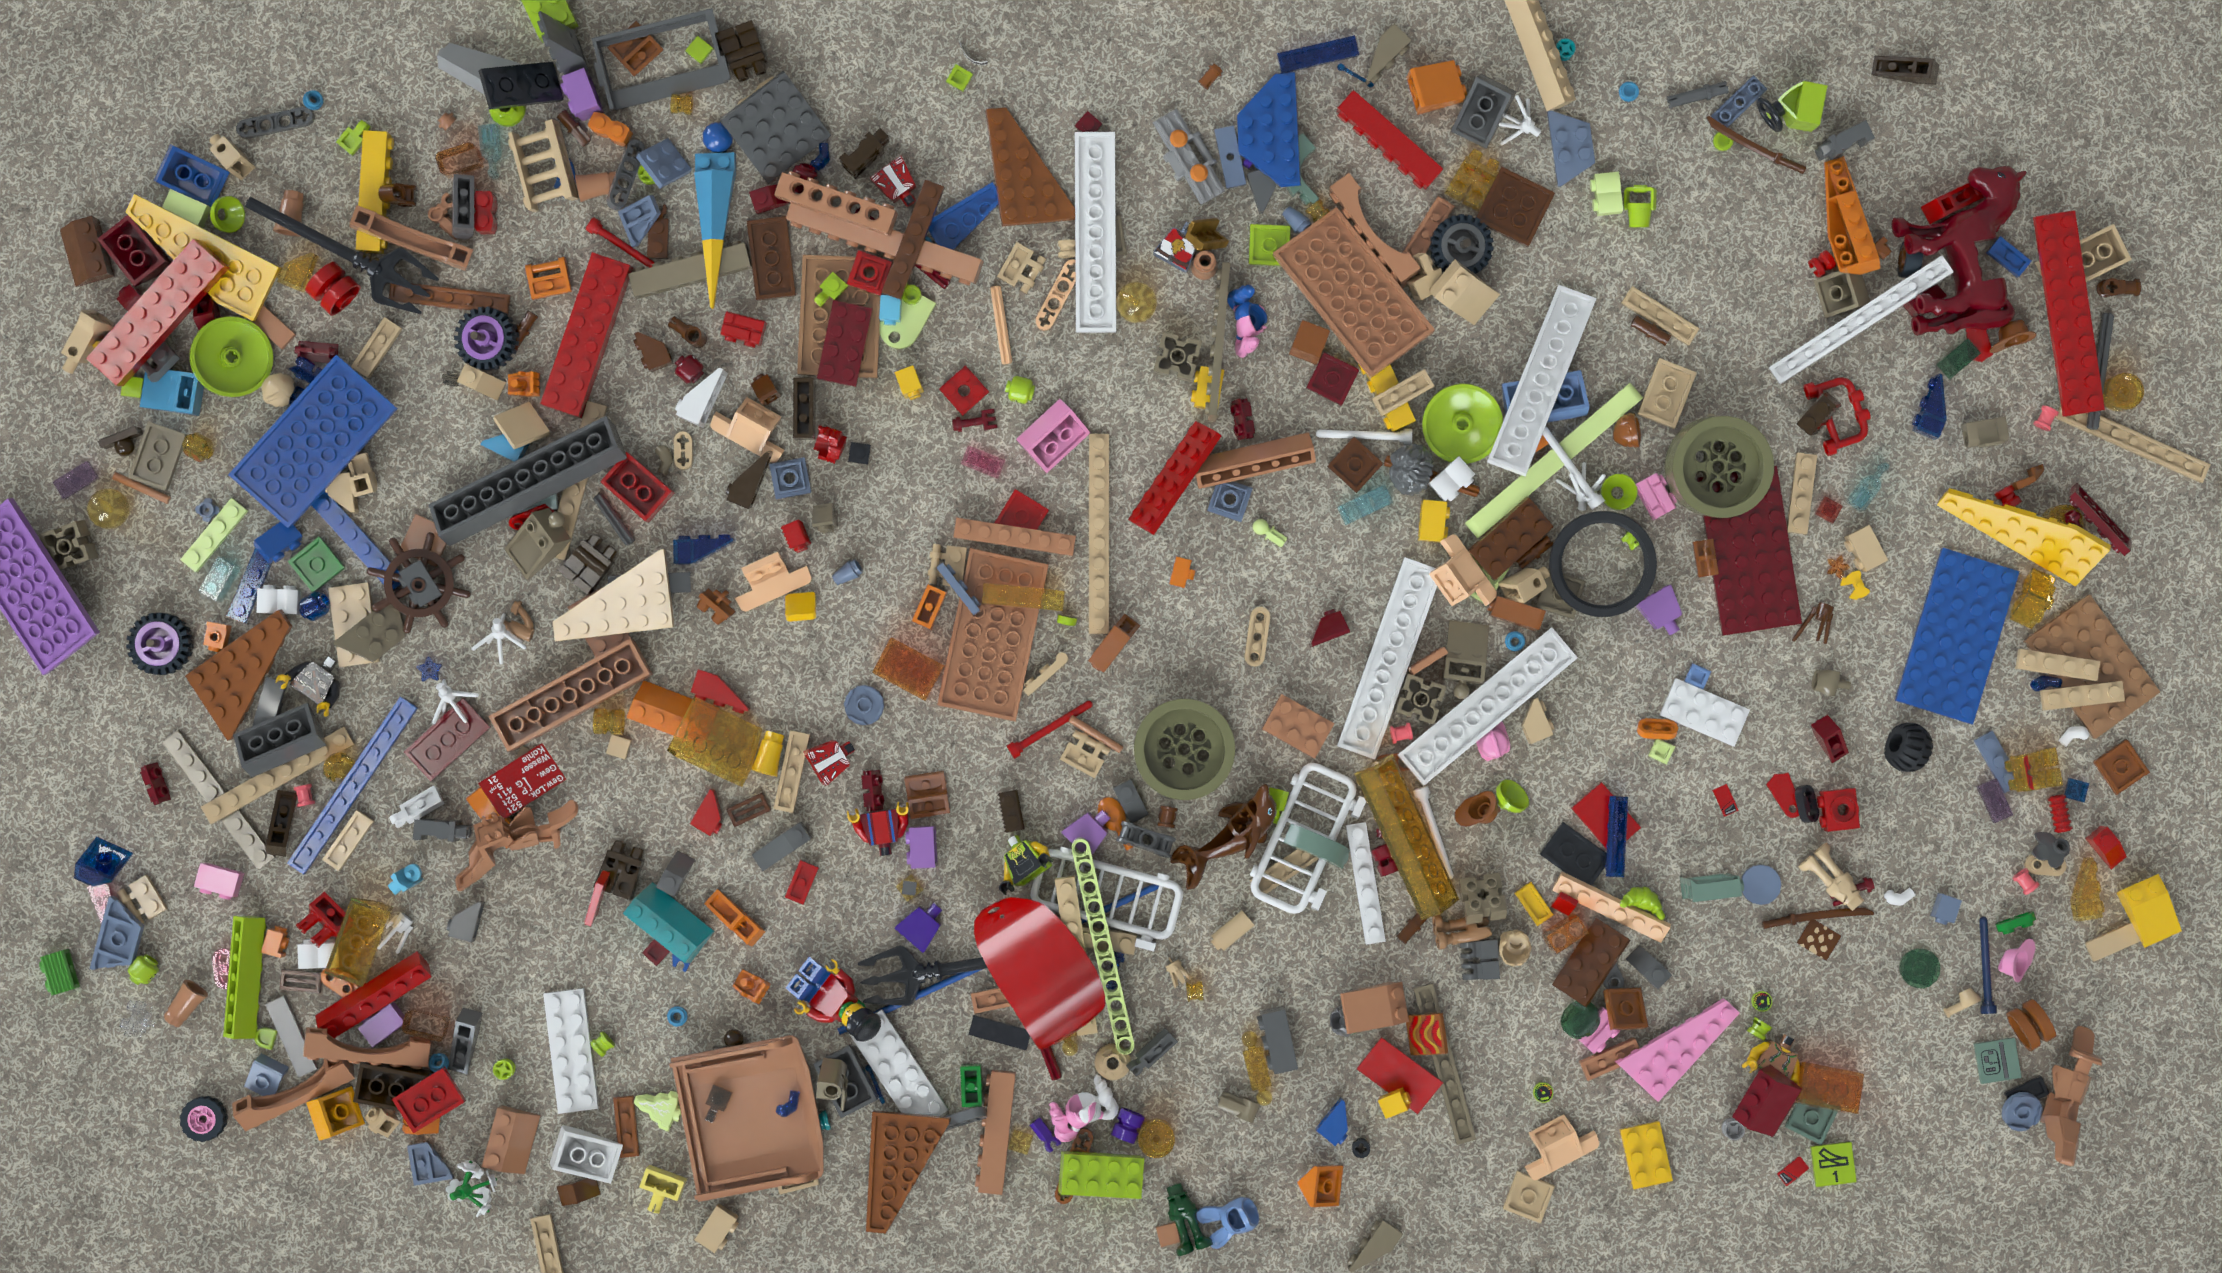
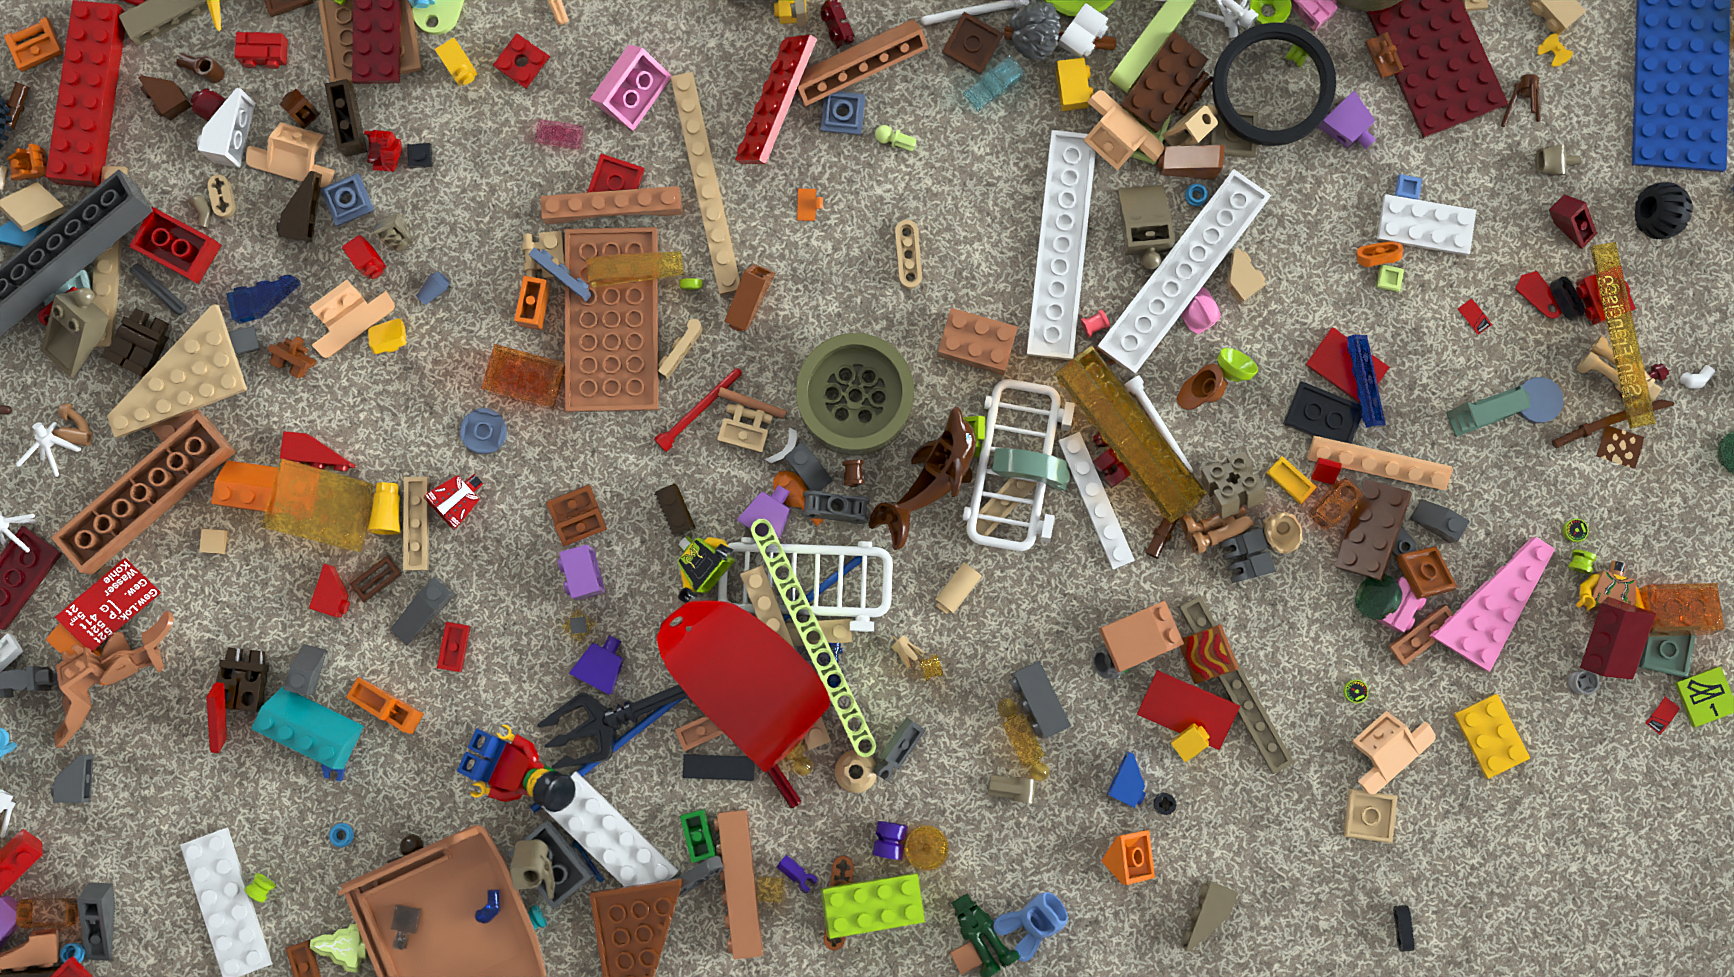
camera: 15 degrees left, 5 degrees down
(501, 1071) = (144, 943): lime wheel -> none
(608, 721) = (190, 515): clear yellow wheel -> none
(655, 952) = (301, 766): dark red plate -> none
(751, 986) = (420, 780): orange hand -> none
(874, 799) = (511, 513): dark red hinge -> none
(881, 827) = (530, 562): torso -> none
(984, 420) = (551, 88): dark red hinge -> none
(1020, 389) = (583, 46): lime head -> none
(1082, 1110) = (834, 834): hair -> none
(1115, 781) = (789, 447): none -> white sticker
(1329, 627) = (988, 224): dark red slope -> none
(1426, 710) = (1118, 270): dark tan brick -> none
(1427, 660) = (1105, 234): nougat tile -> none
(1643, 899) = (1415, 445): lime piece -> none
(1837, 567) = (1530, 35): clear orange plant -> none
(1841, 848) = (1622, 335): none -> clear yellow tile

